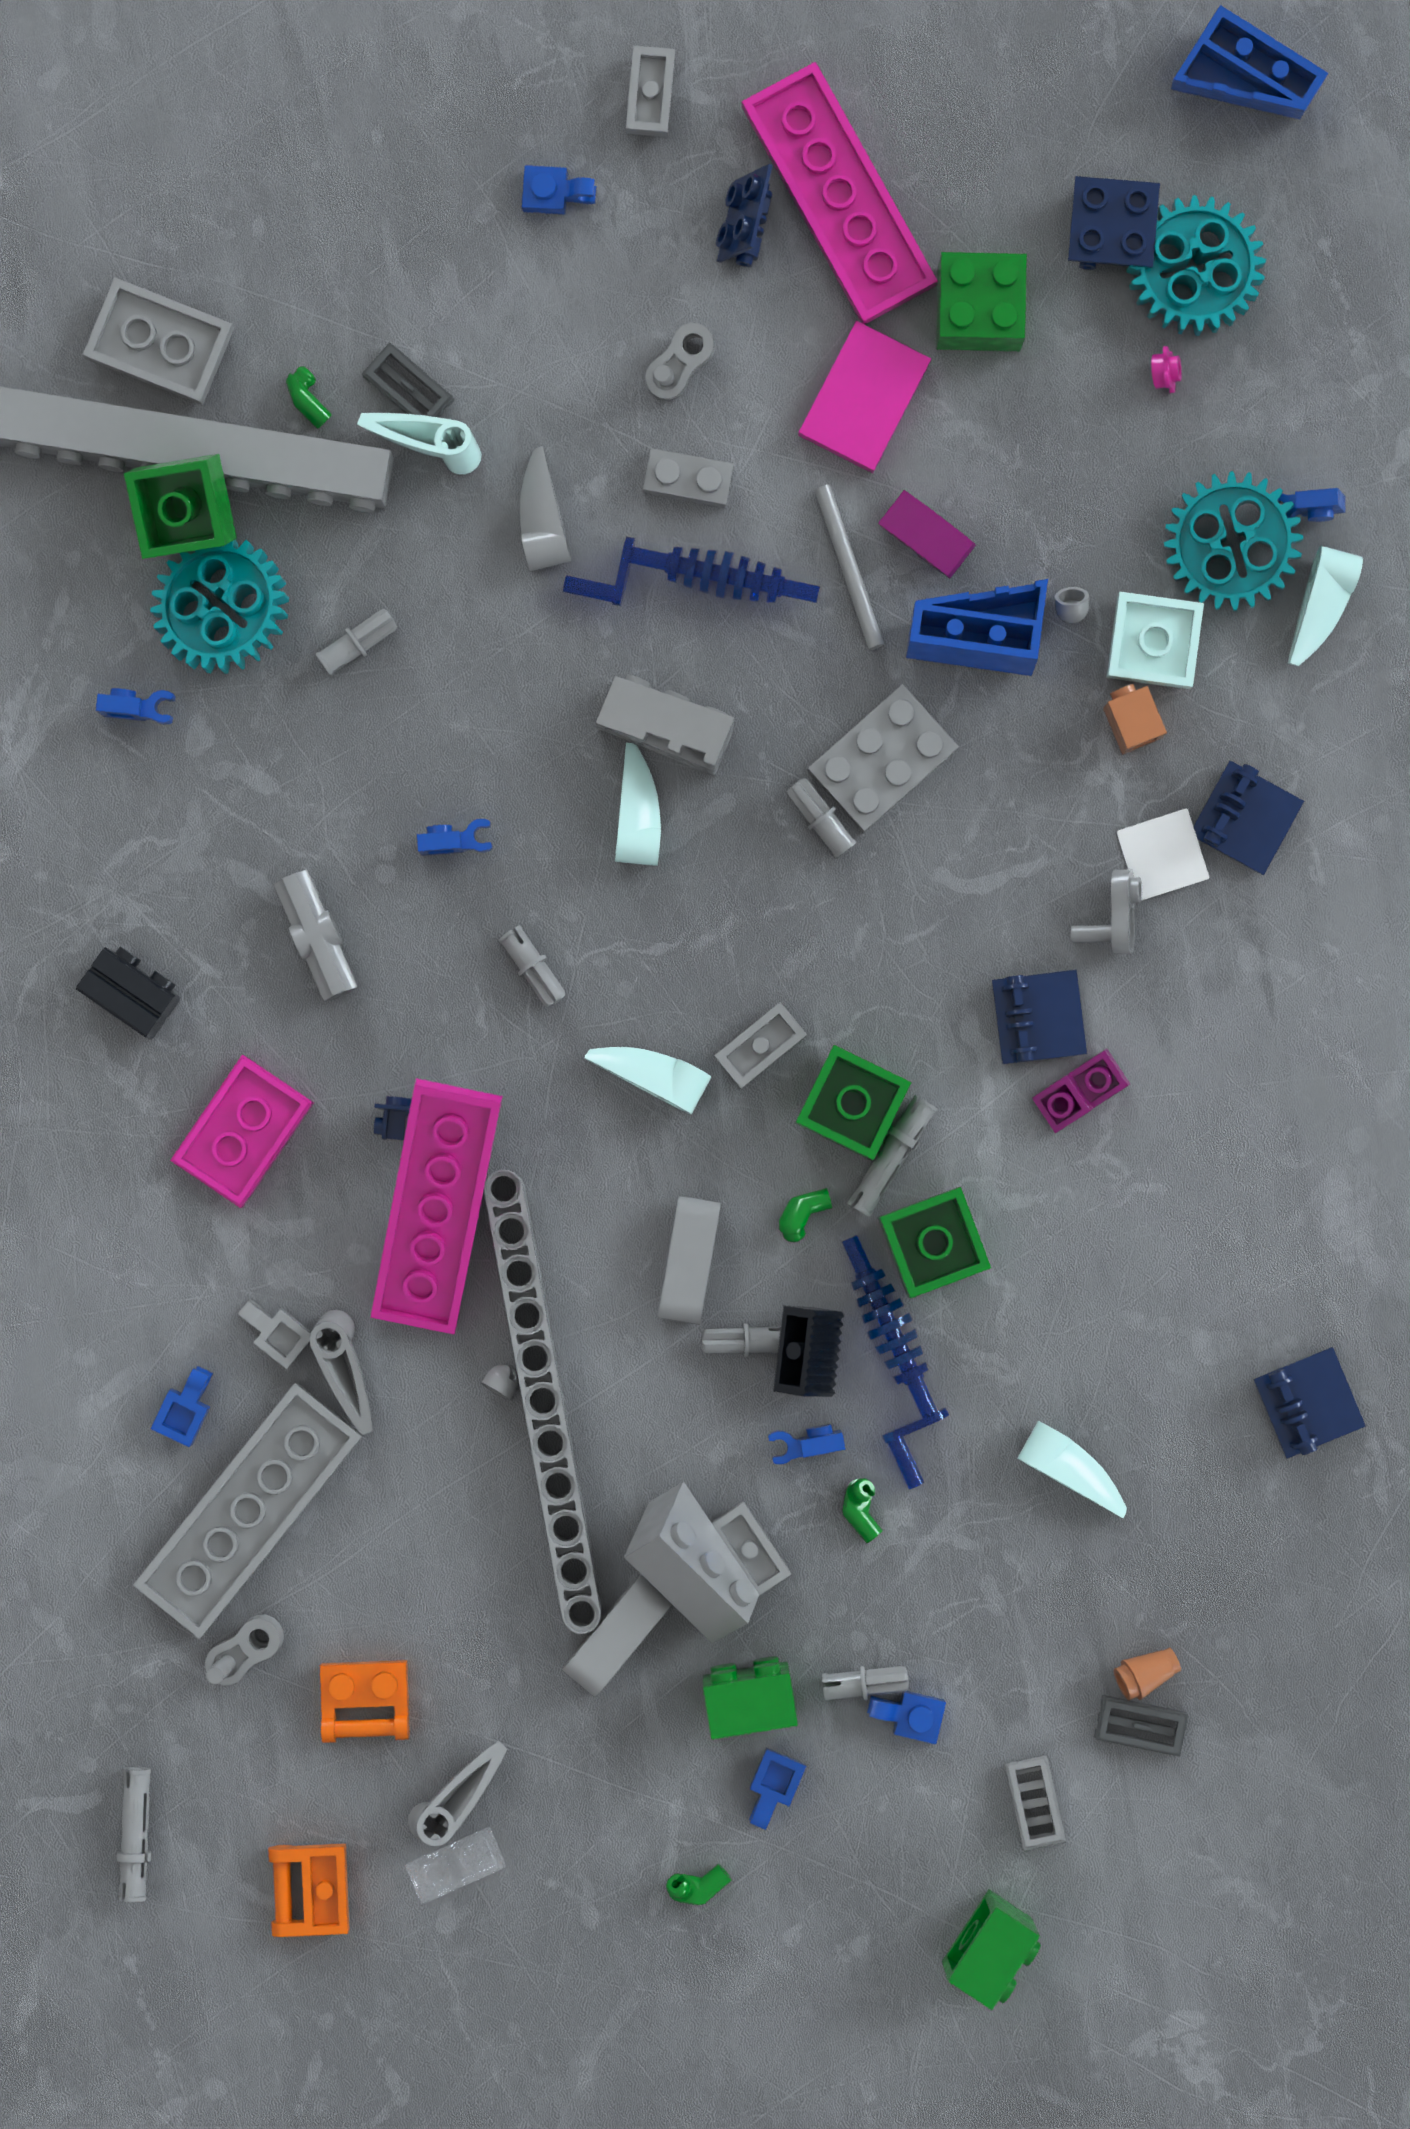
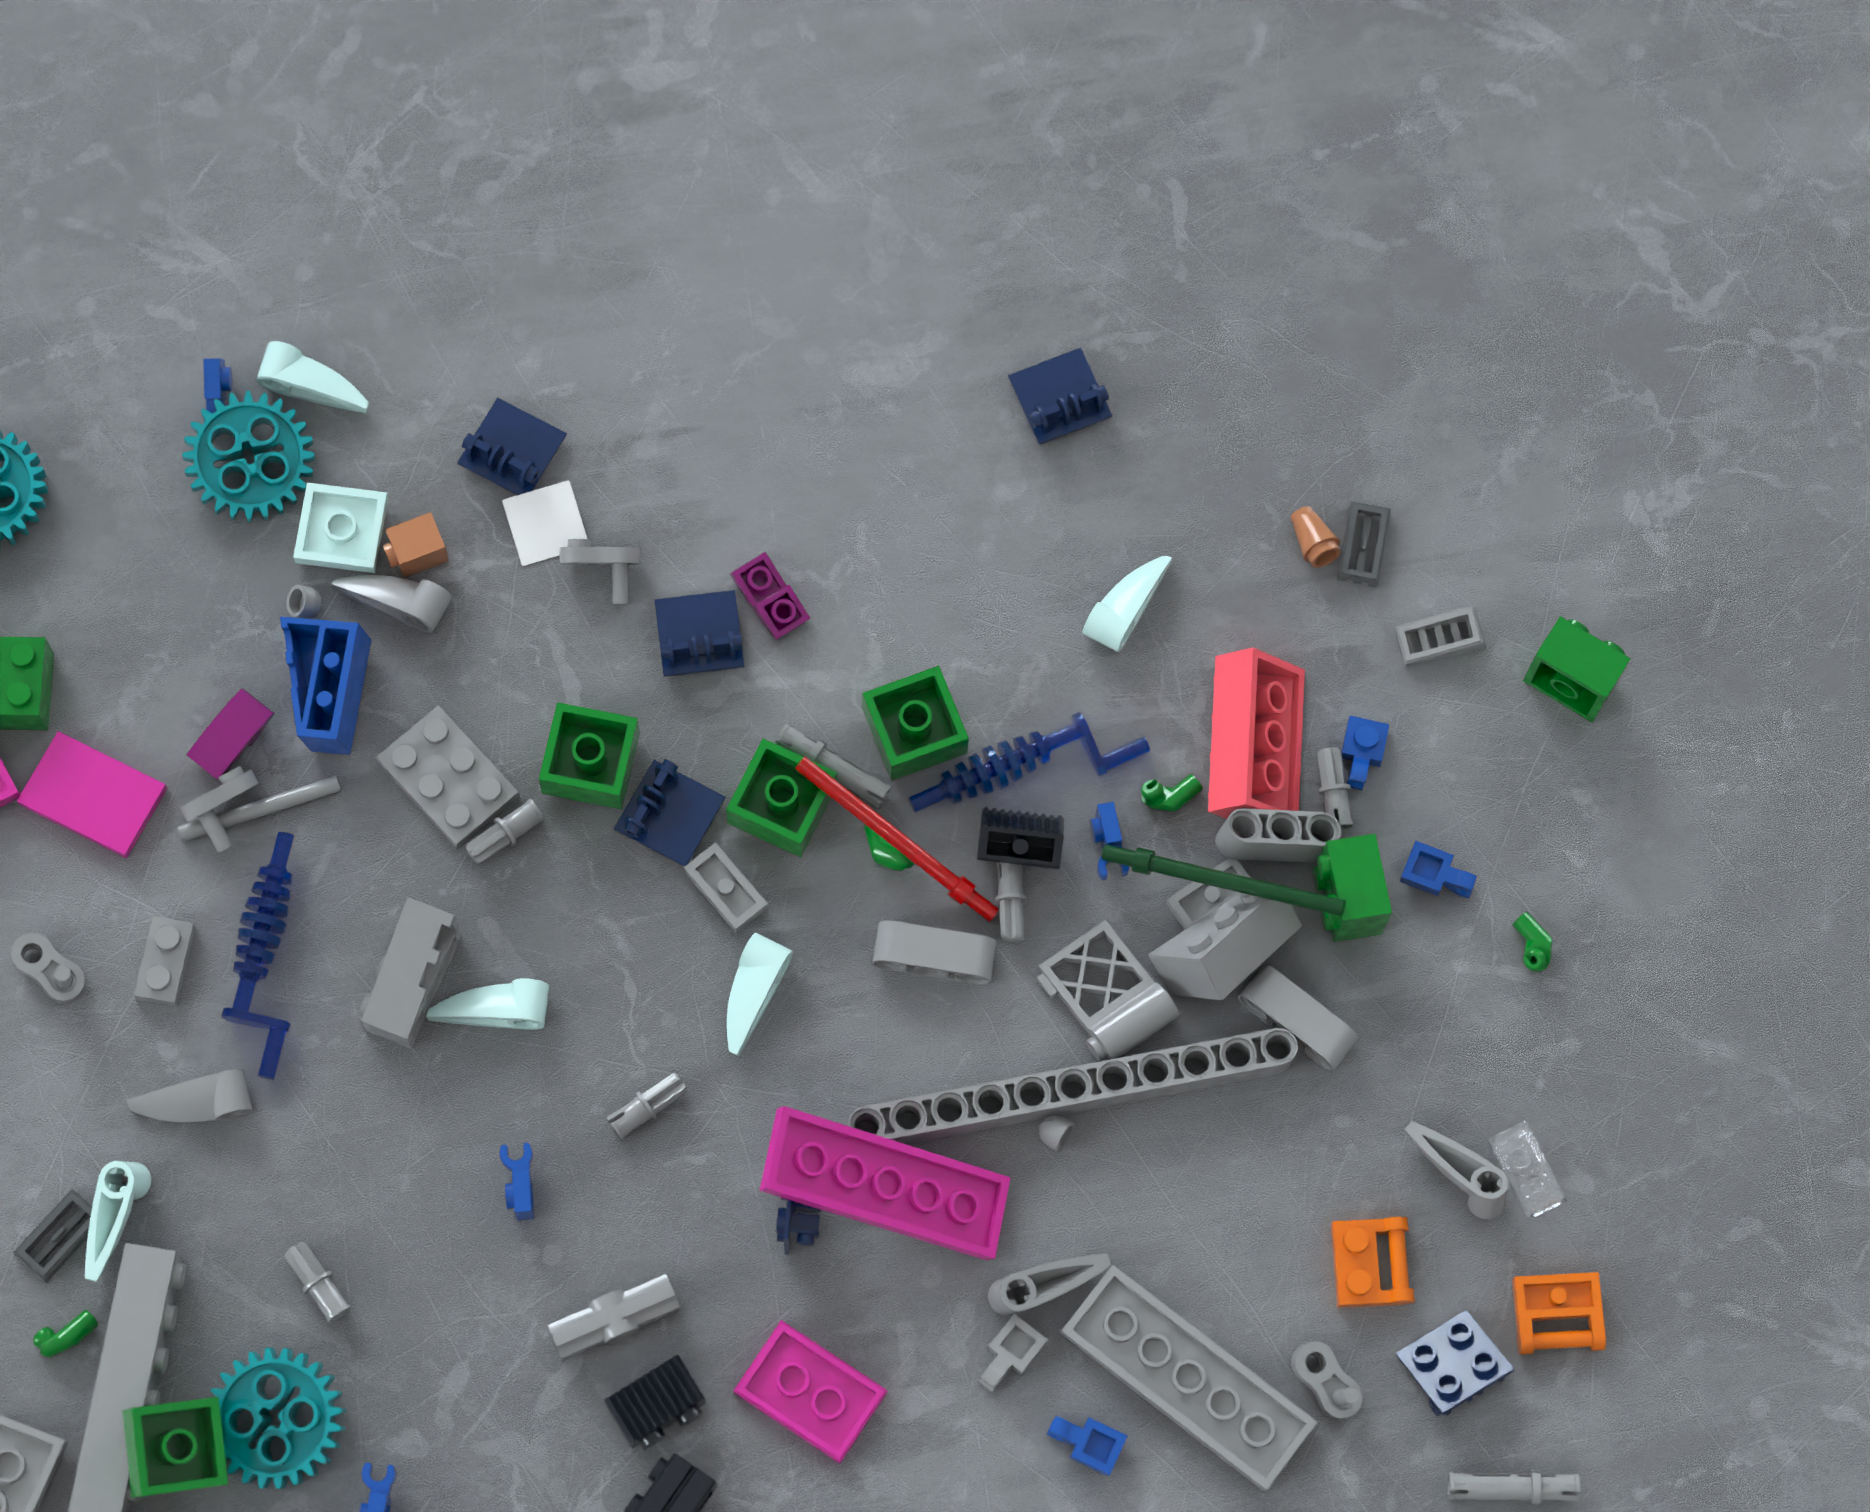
camera: 95 degrees left, 15 degrees down
(229, 978) = (655, 1403): none -> black brick
(259, 1781) = (1454, 1363): none -> hinge
(617, 1458) = (1127, 1019): none -> light grey piece
(758, 1286) = (959, 888): none -> red bar
(778, 1481) = (1145, 862): none -> dark green bar
(815, 1640) = (1263, 845): none -> light grey beam
(842, 987) = (669, 812): none -> dark blue hinge
(846, 508) = (233, 784): none -> light grey piece
(899, 903) = (589, 755): none -> green brick
(919, 1602) = (1255, 733): none -> coral slope
(1078, 702) = (401, 599): none -> light grey piece
(1166, 370) = (80, 516): dark pink plate -> none

